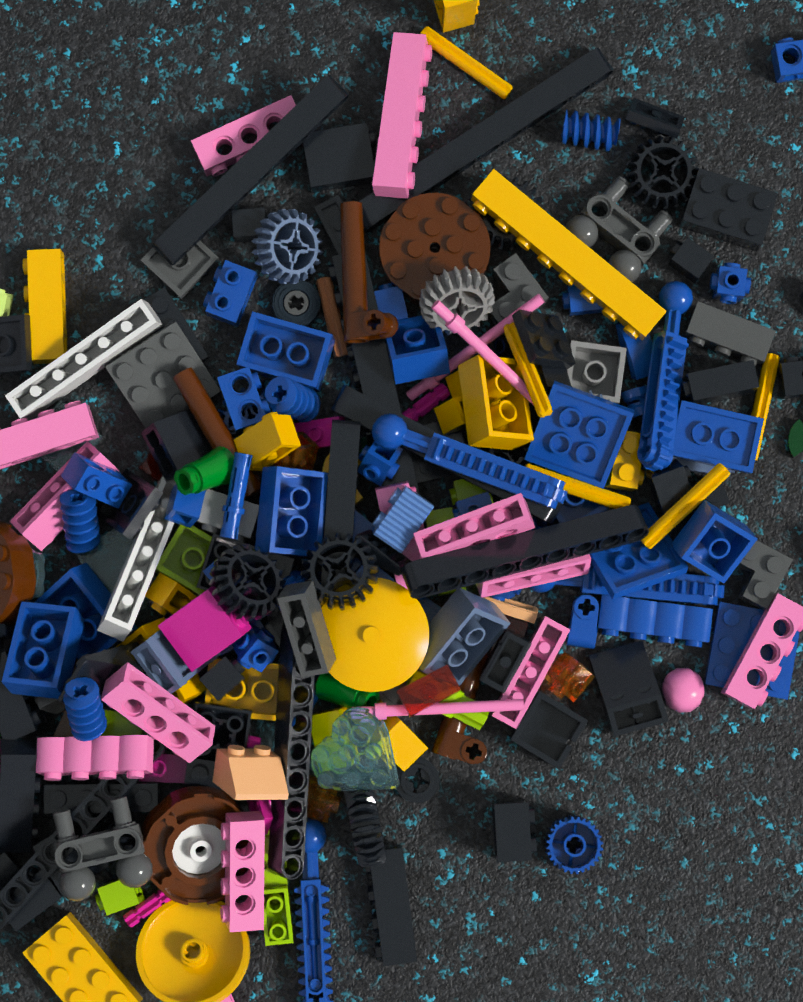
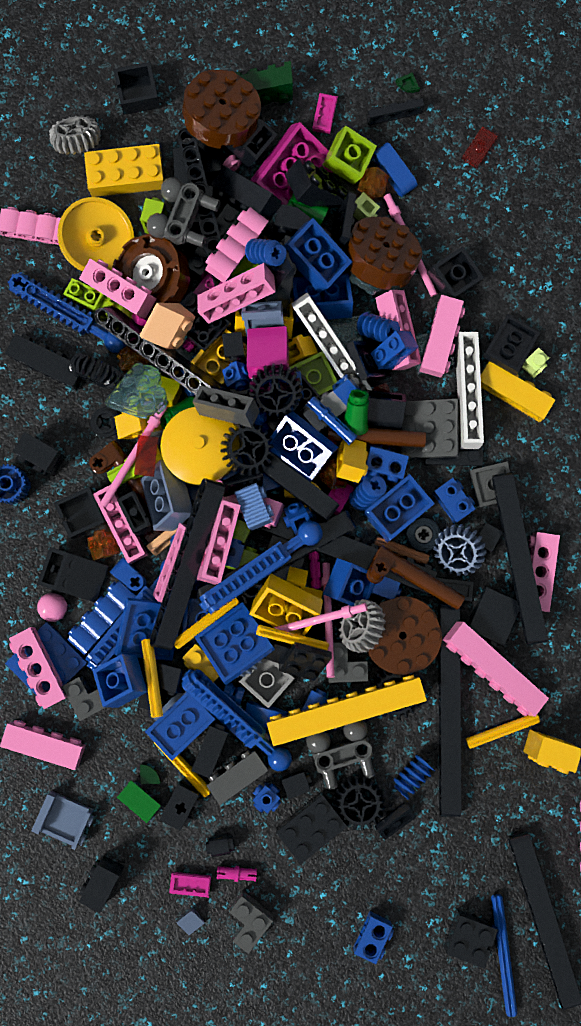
camera: 125 degrees right, 0 degrees up
(145, 908) = (137, 226): dark pink axle -> none

